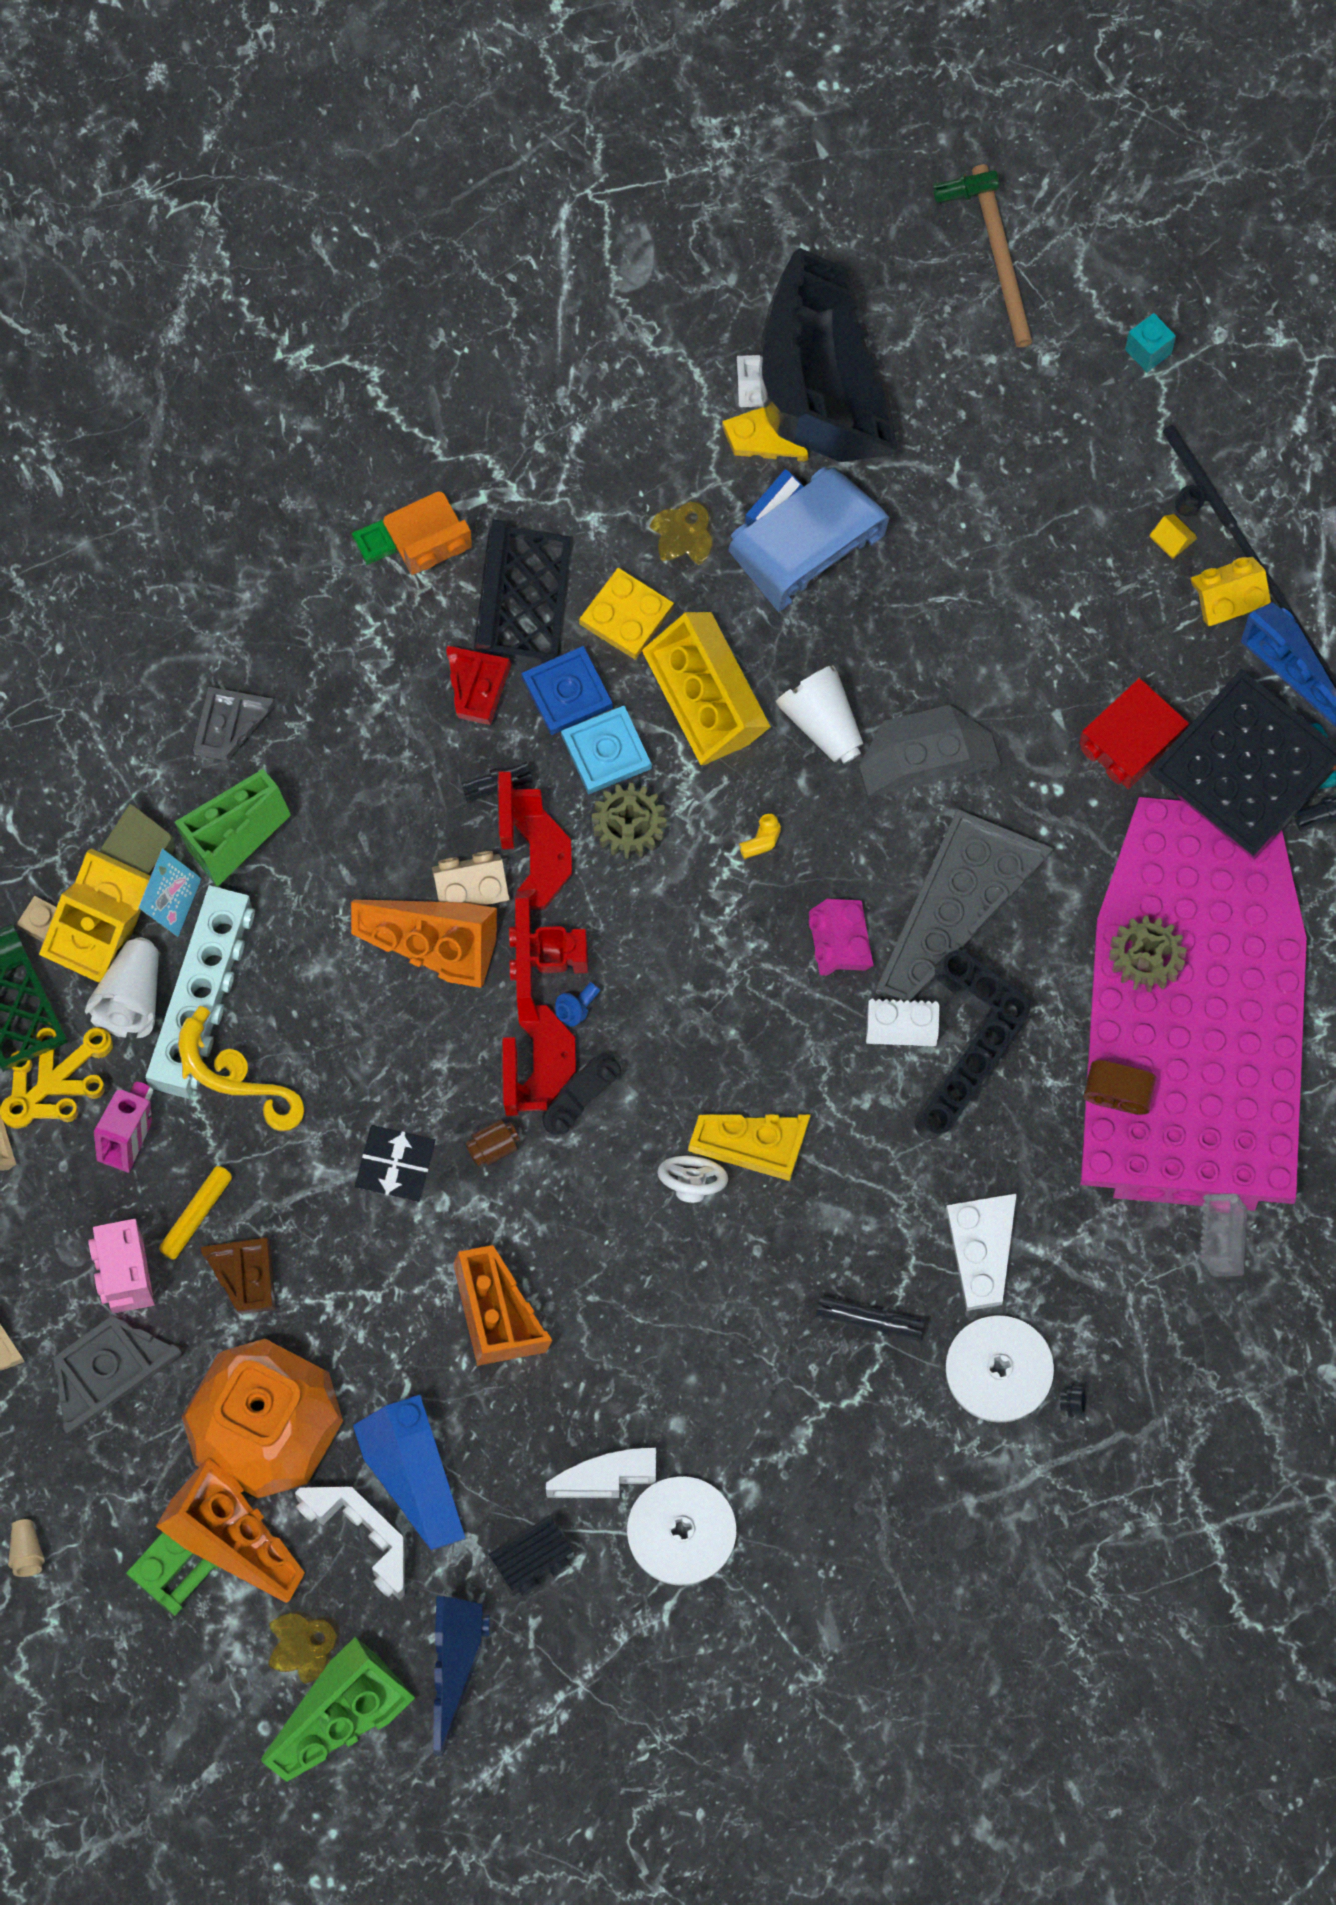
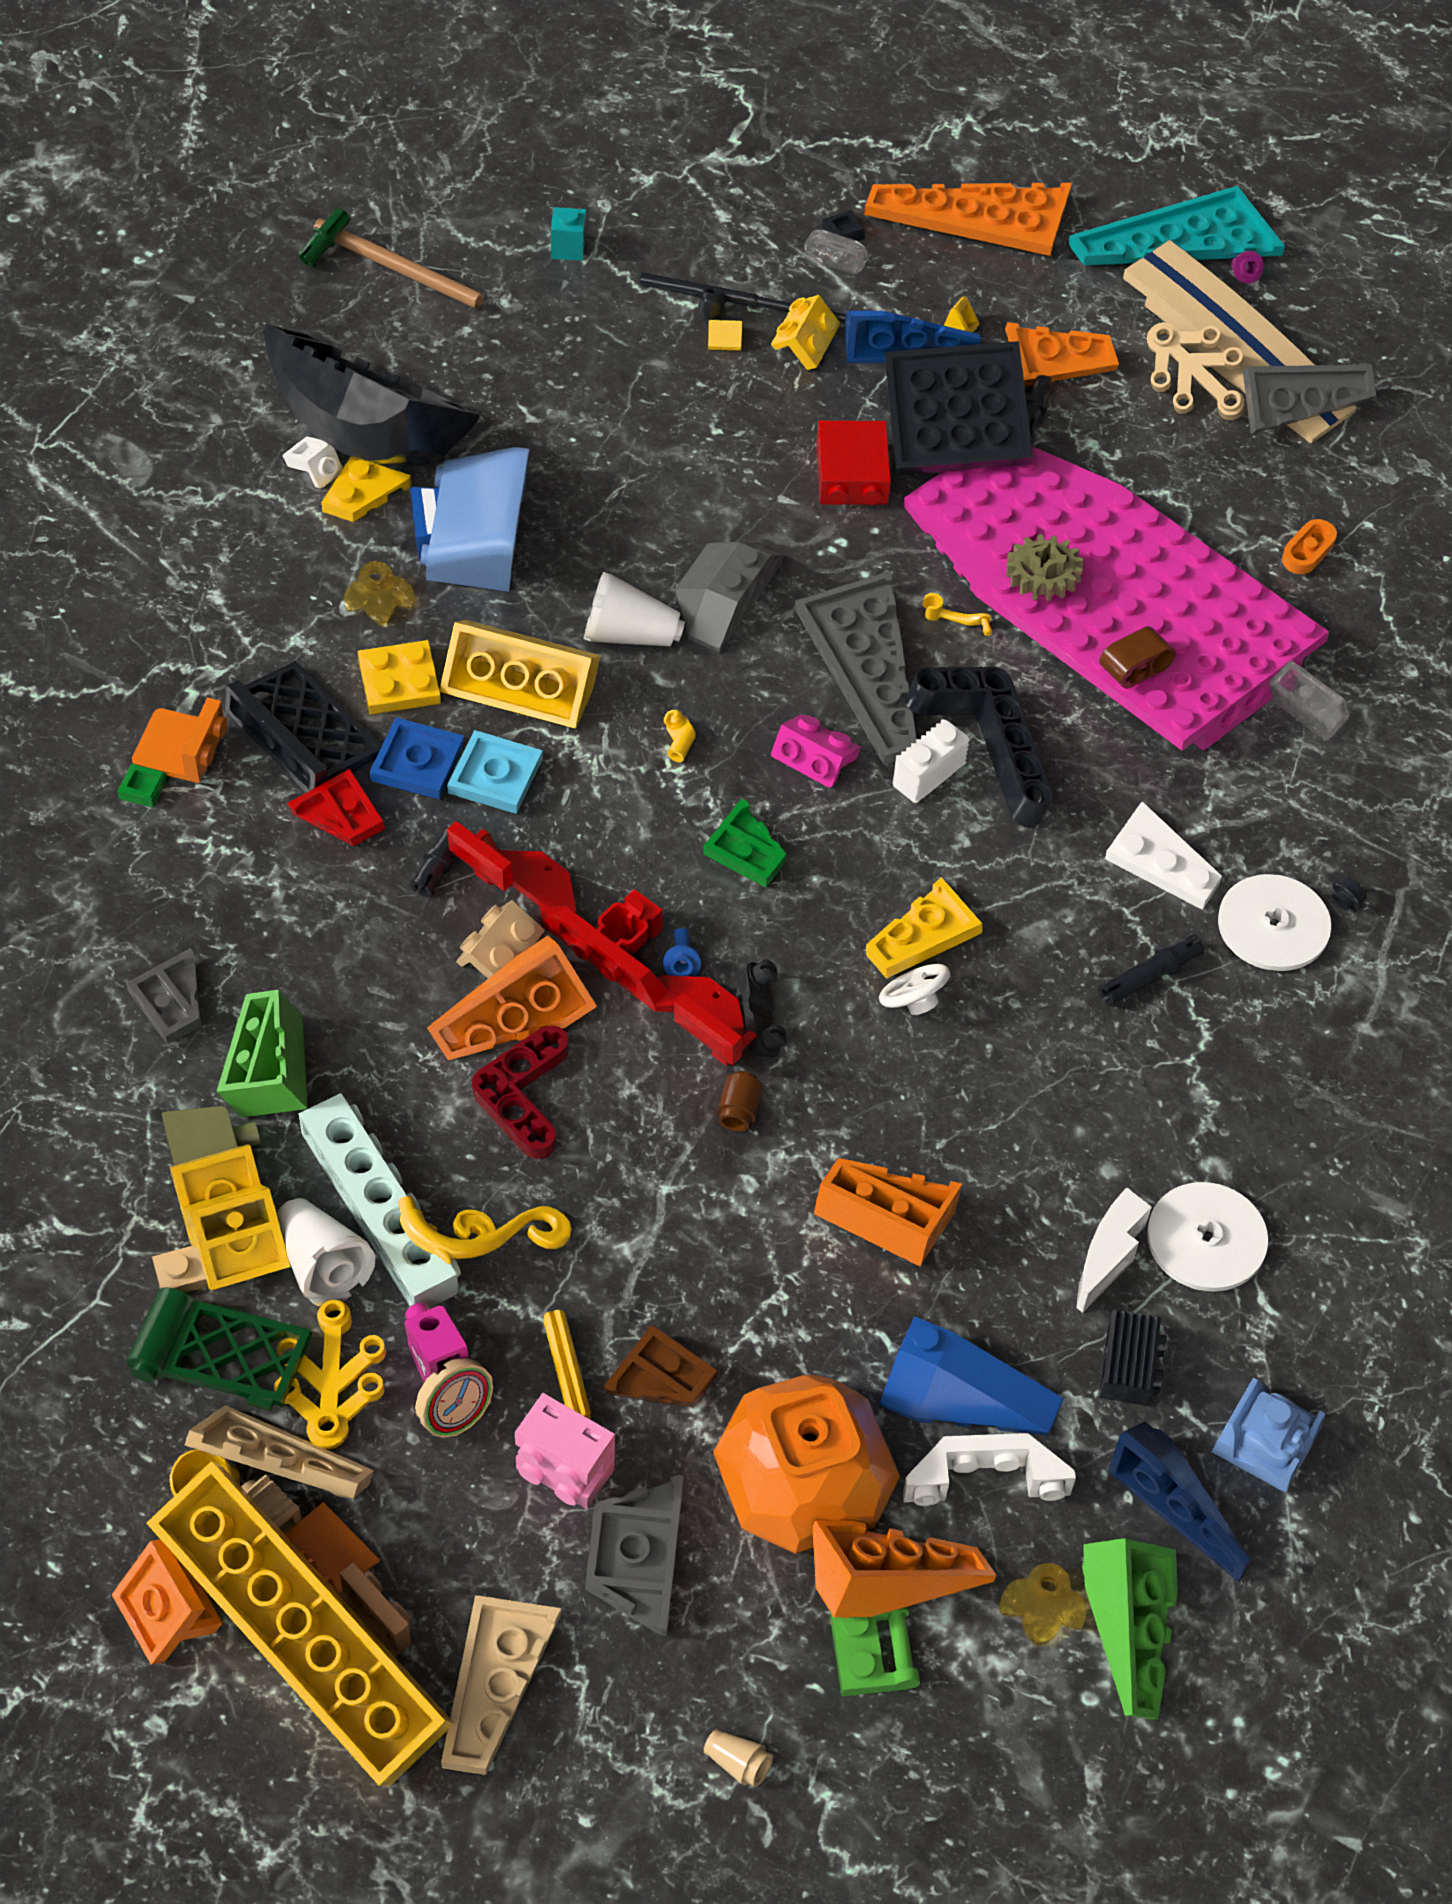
camera: 50 degrees left, 15 degrees down
(99, 1167) = (454, 1398): none -> tile
(169, 892) = (270, 1149): medium azure sticker -> none
(370, 987) = (511, 1082): none -> dark red beam
(395, 1163) = (678, 1189): black sticker -> none
(559, 1690) = (1268, 1436): none -> medium blue brick
(643, 821) = (570, 801): olive gear -> none
(708, 965) = (746, 846): none -> green wing
(1068, 934) = (934, 611): none -> yellow piece

